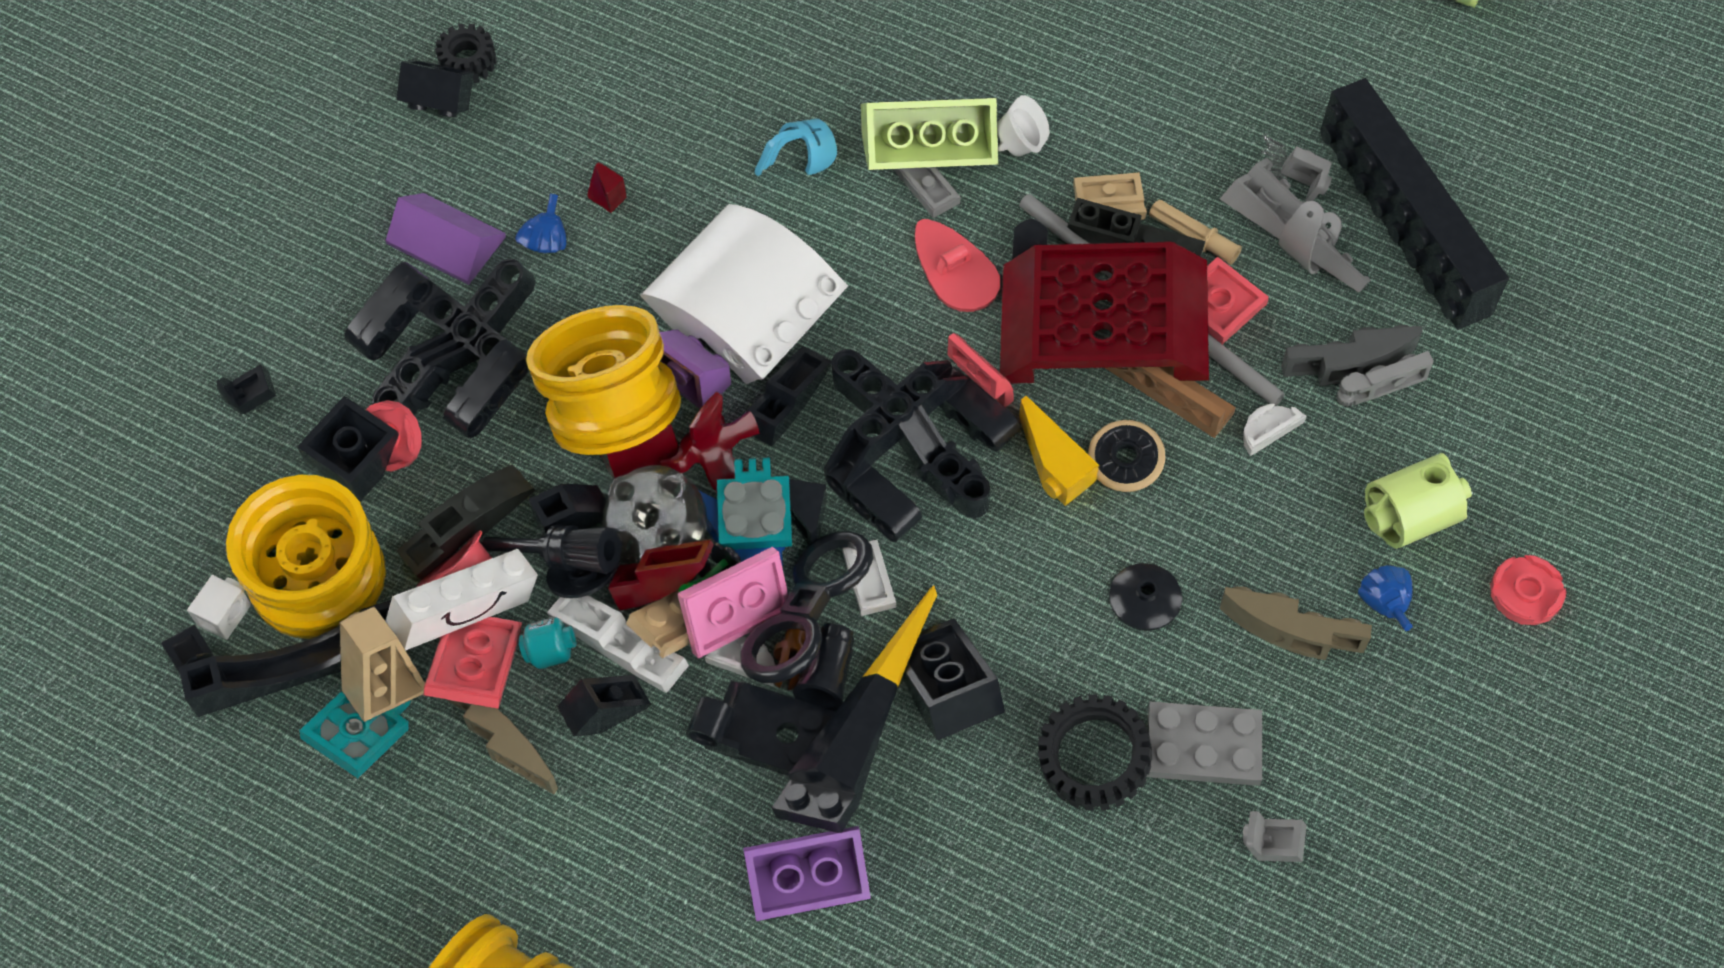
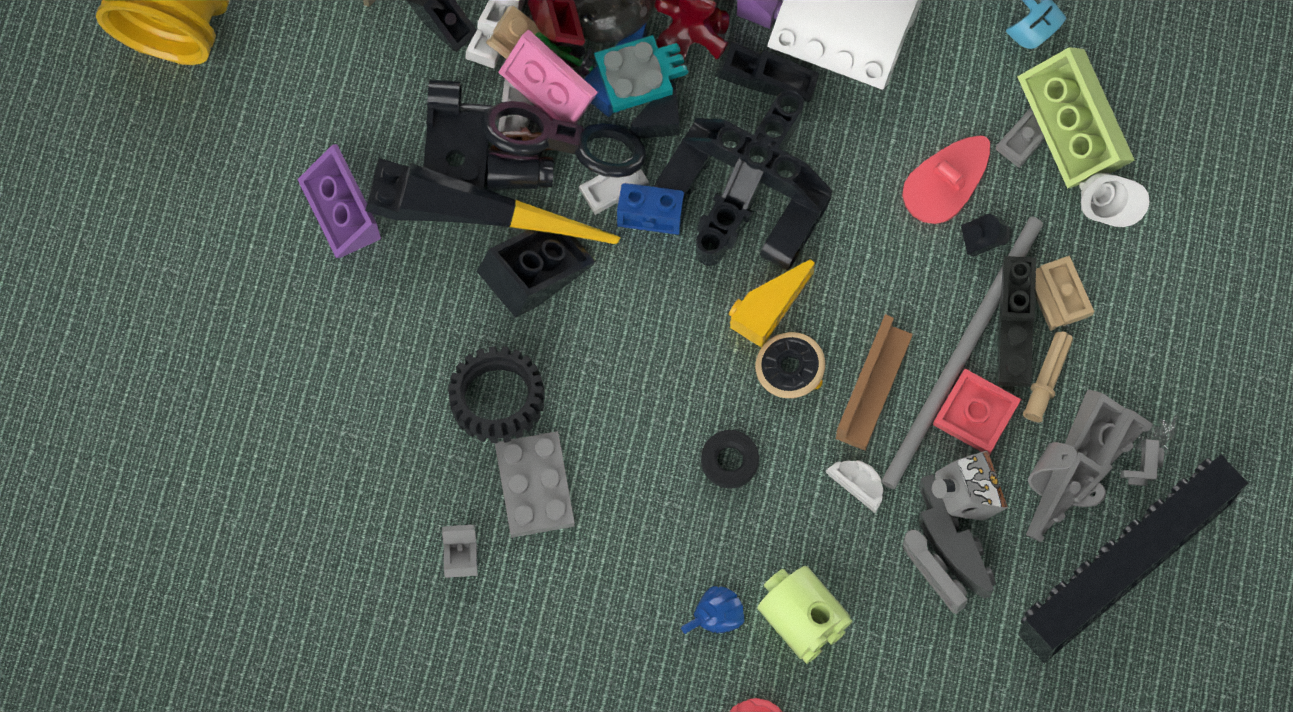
camera: 75 degrees right, 10 degrees up
(915, 539) = (650, 208): none -> blue bracket
(980, 370) = (830, 219): coral slope -> none
(1143, 610) = (656, 425): black dish -> none
(1153, 318) = (930, 350): dark red slope -> none
(1219, 559) = (735, 440): none -> black tyre
(1277, 621) = (662, 522): dark tan slope -> none
(1306, 319) = (970, 488): none -> light grey torso

